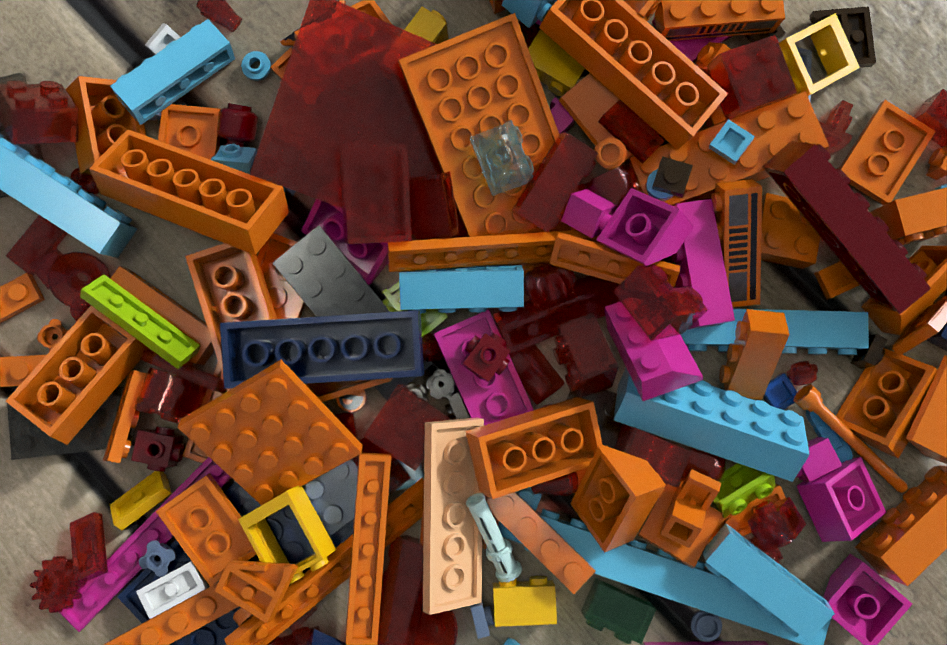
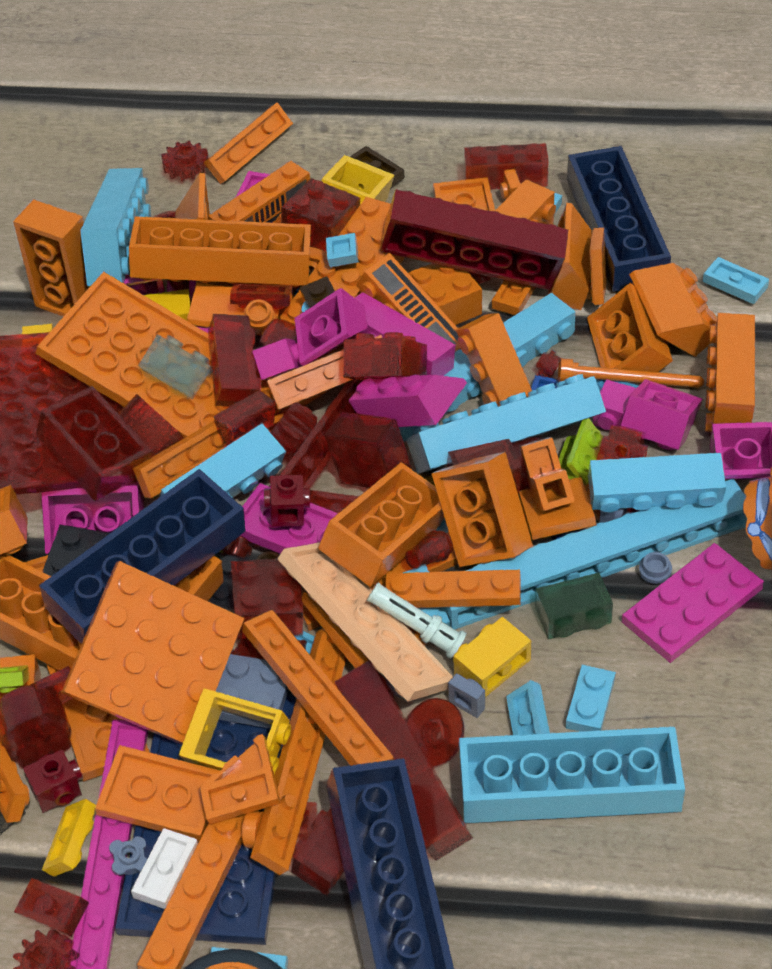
camera: 40 degrees left, 35 degrees down
(515, 252) = (244, 417): none -> clear red slope
(871, 356) = (583, 319): dark brown plate -> none

